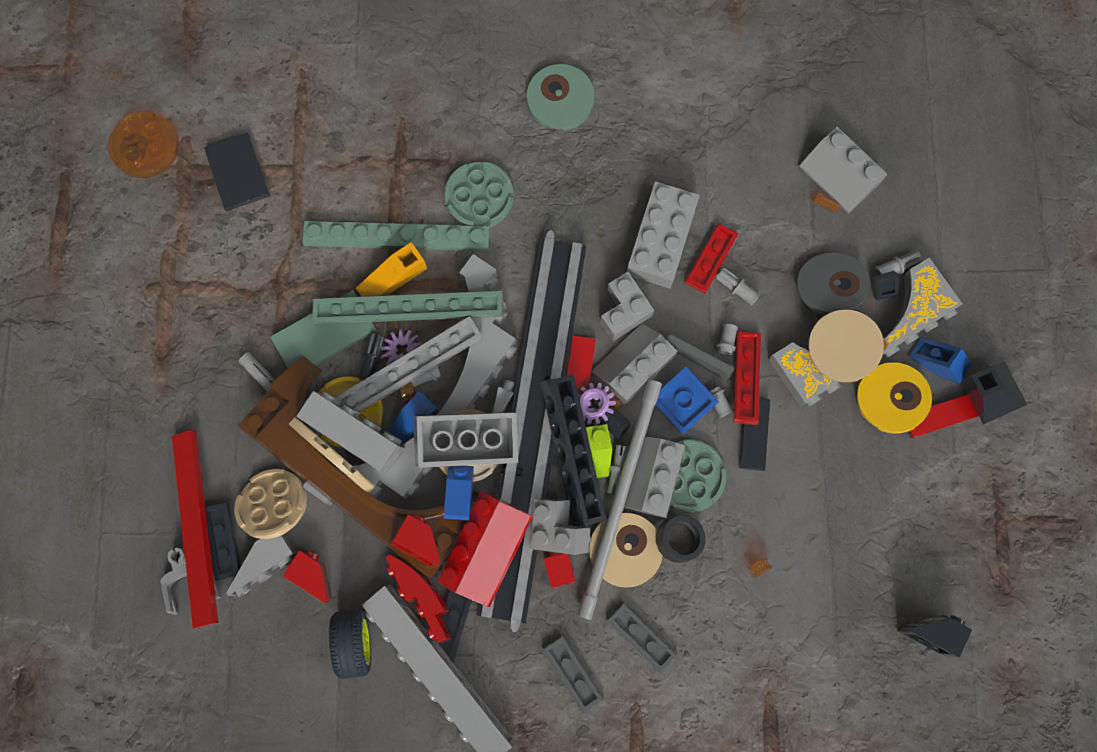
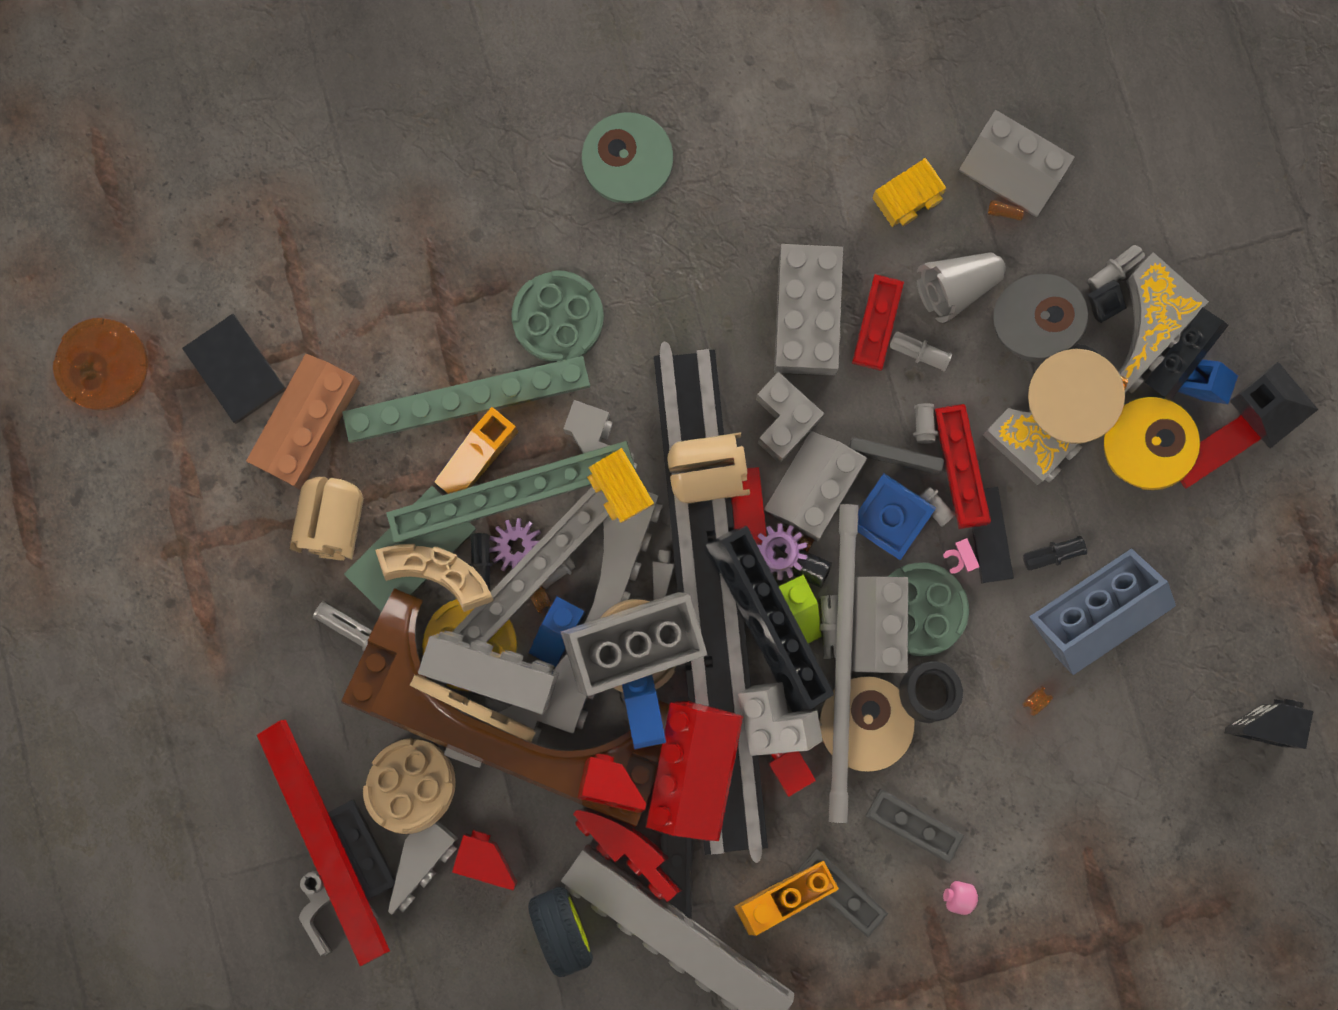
camera: 15 degrees left, 5 degrees up
(269, 292) = (327, 518): none -> tan cylinder
(275, 221) = (303, 421): none -> nougat slope
(337, 346) = (438, 566): none -> tan tile
(488, 321) = (620, 486): none -> yellow brick
(529, 665) = (785, 898): none -> light orange slope
(556, 326) = (707, 454): none -> tan cylinder
(663, 703) = (961, 898): none -> bright pink piece
(732, 443) = (965, 556): none -> bright pink tile
(758, 172) = (909, 193): none -> yellow brick
(777, 243) = (958, 282): none -> light grey cone
(801, 460) = (1055, 553): none -> black axle
(827, 513) = (1103, 611): none -> sand blue slope
(937, 337) = (1186, 353): none -> black plate

